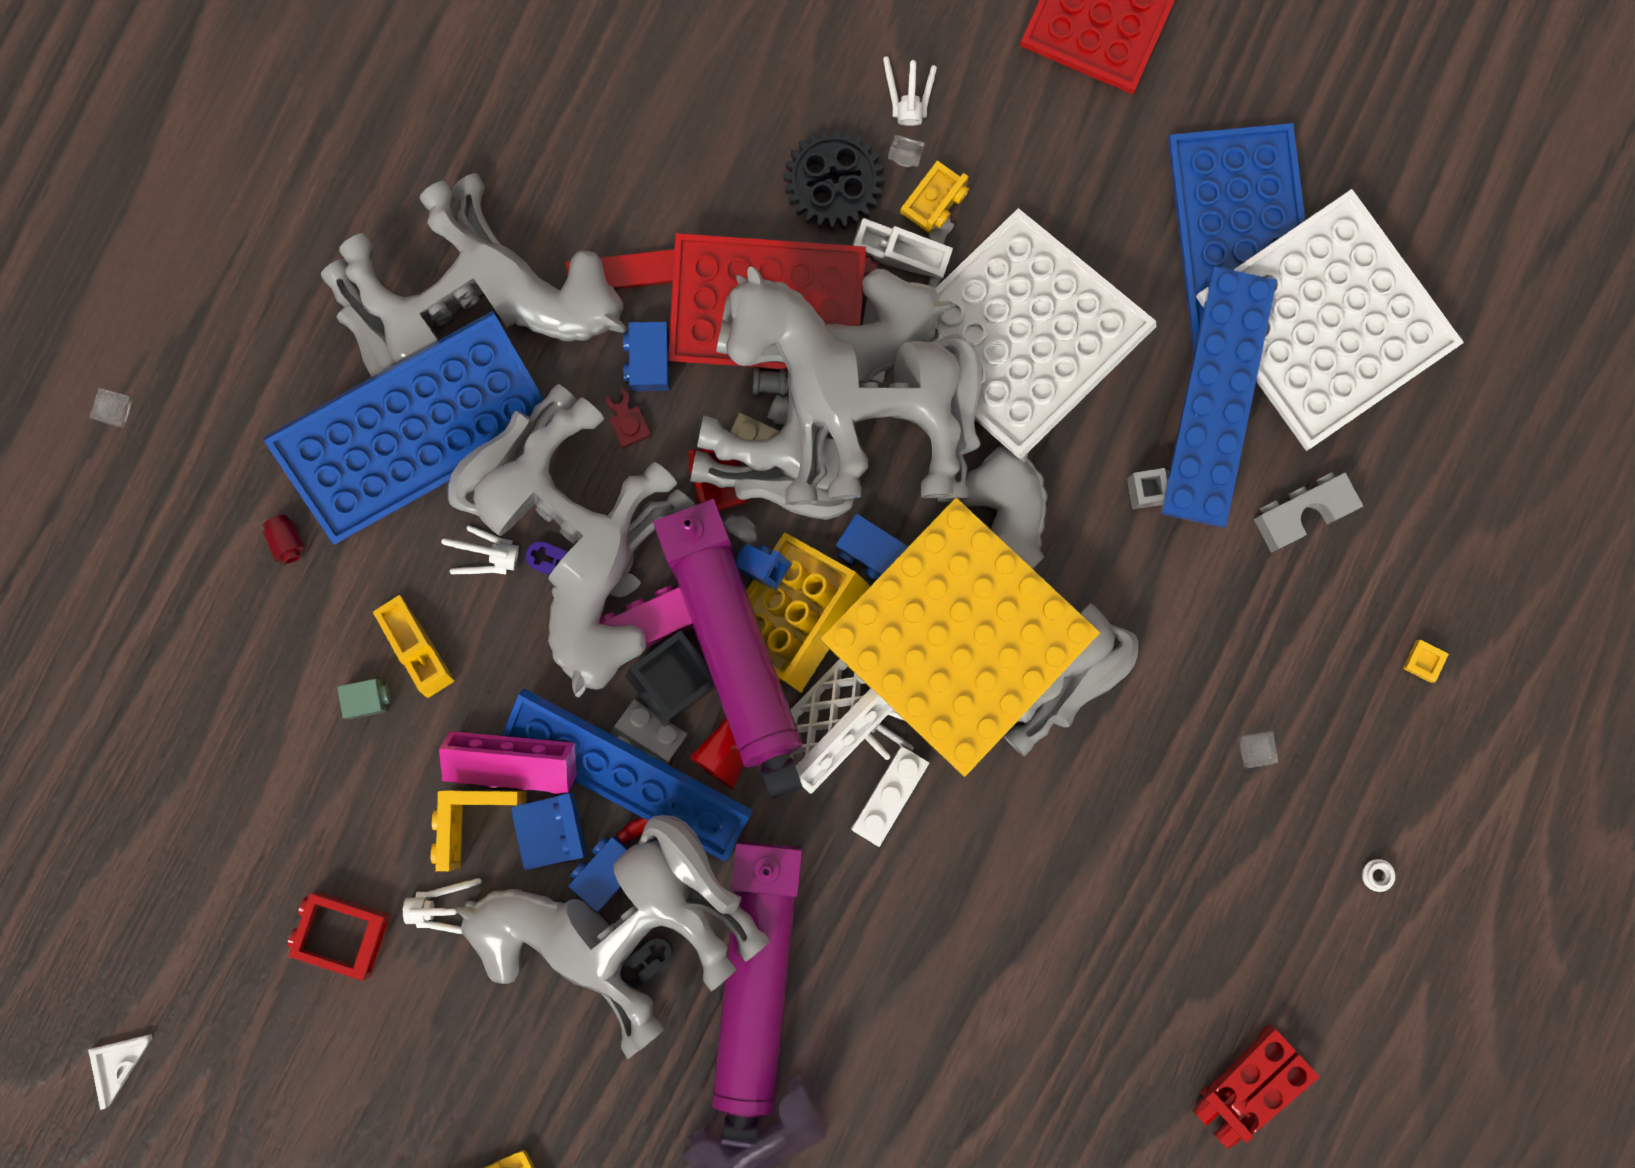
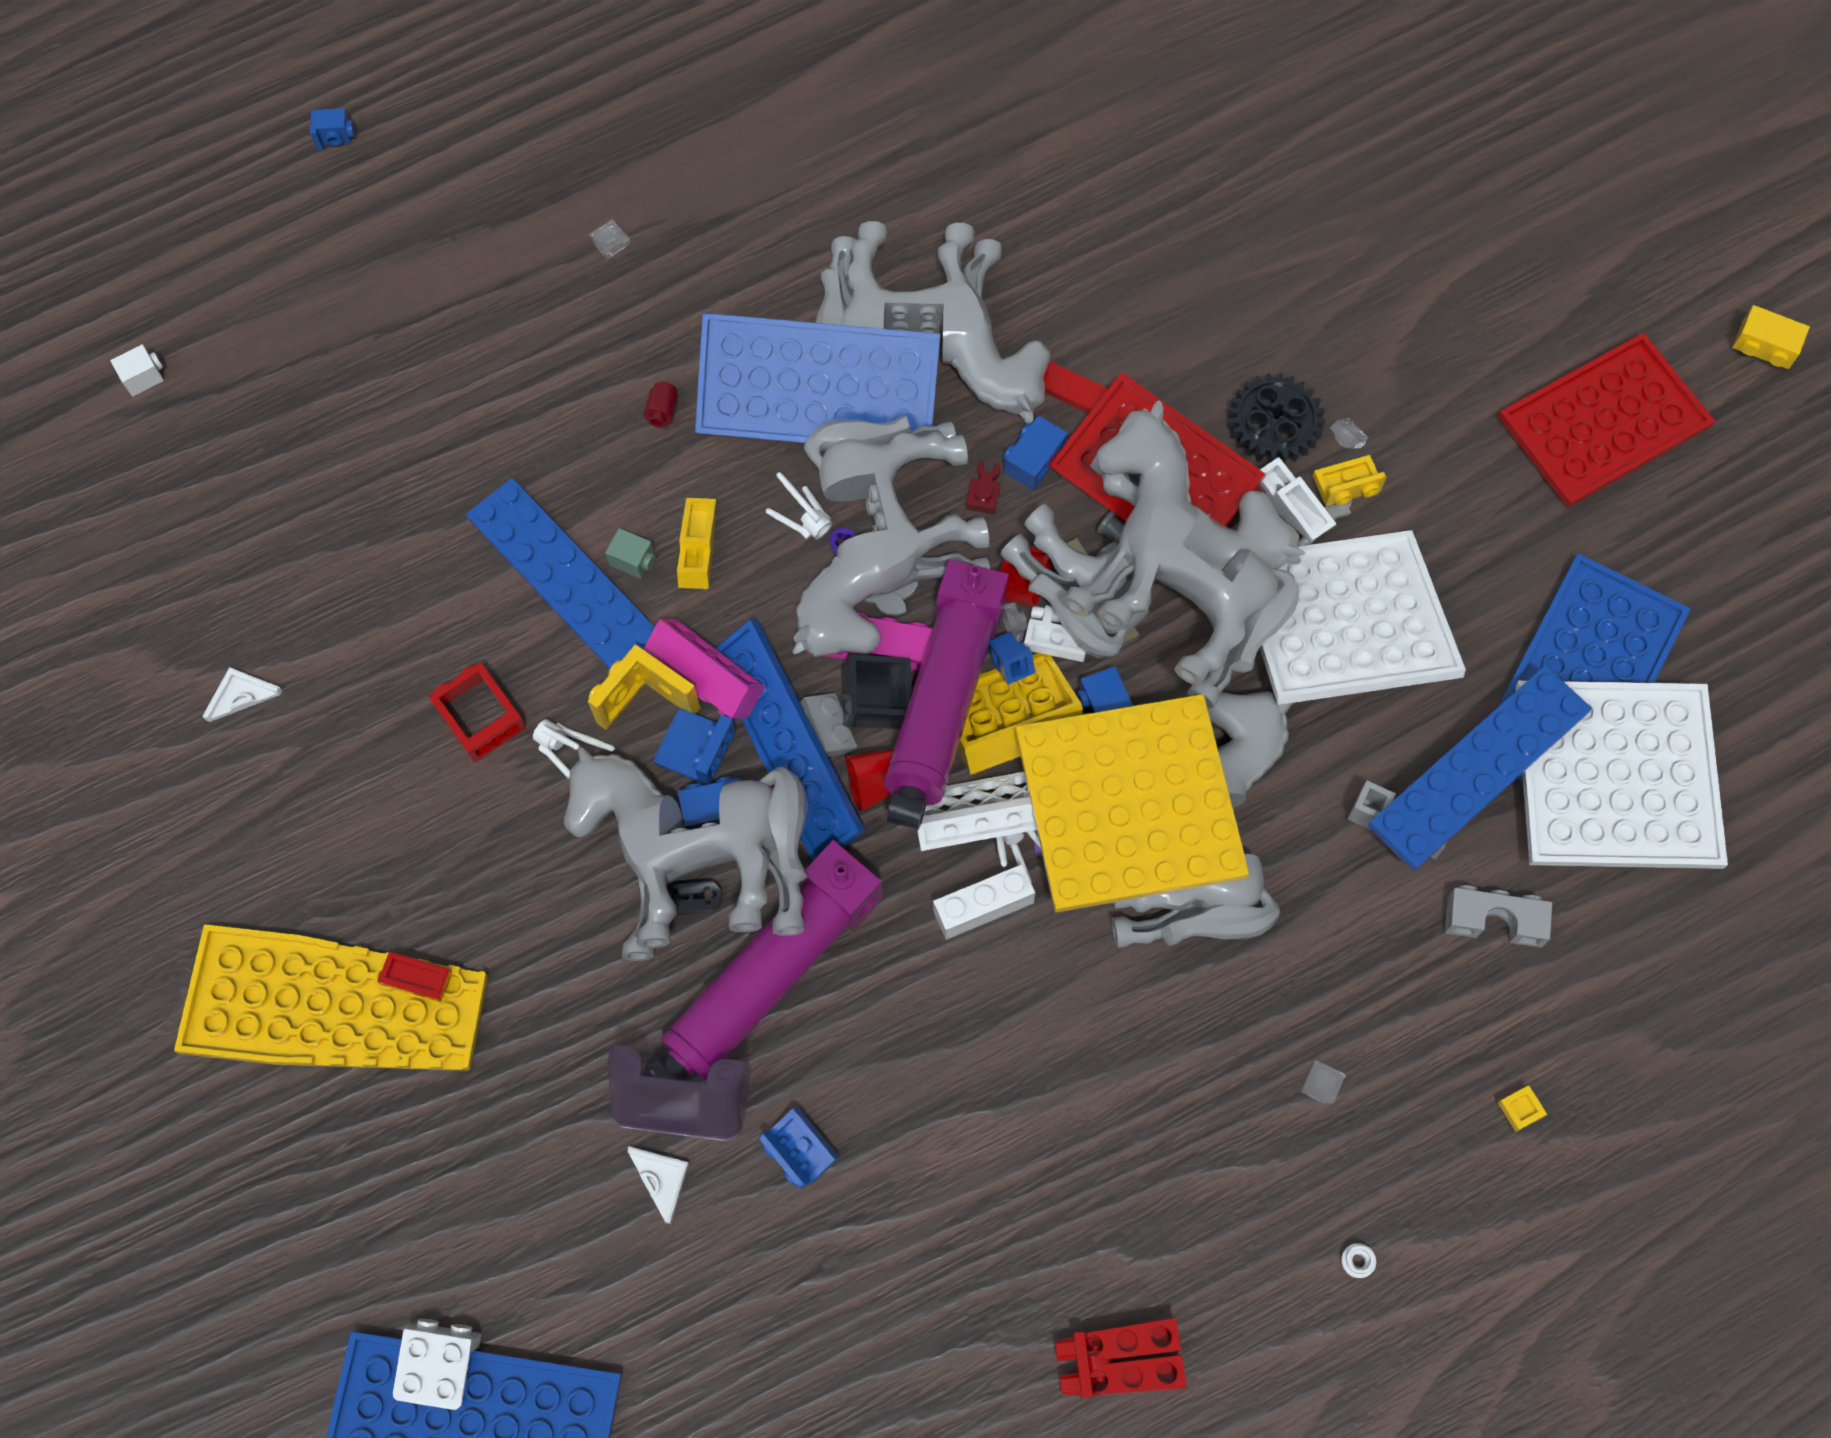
camera: 40 degrees right, 15 degrees down
(317, 758) = (560, 573): none -> blue plate
(779, 523) = (1050, 637): none -> white plate
(886, 1108) = (798, 1149): none -> blue bracket
(910, 109) = (1374, 407): white plant -> none

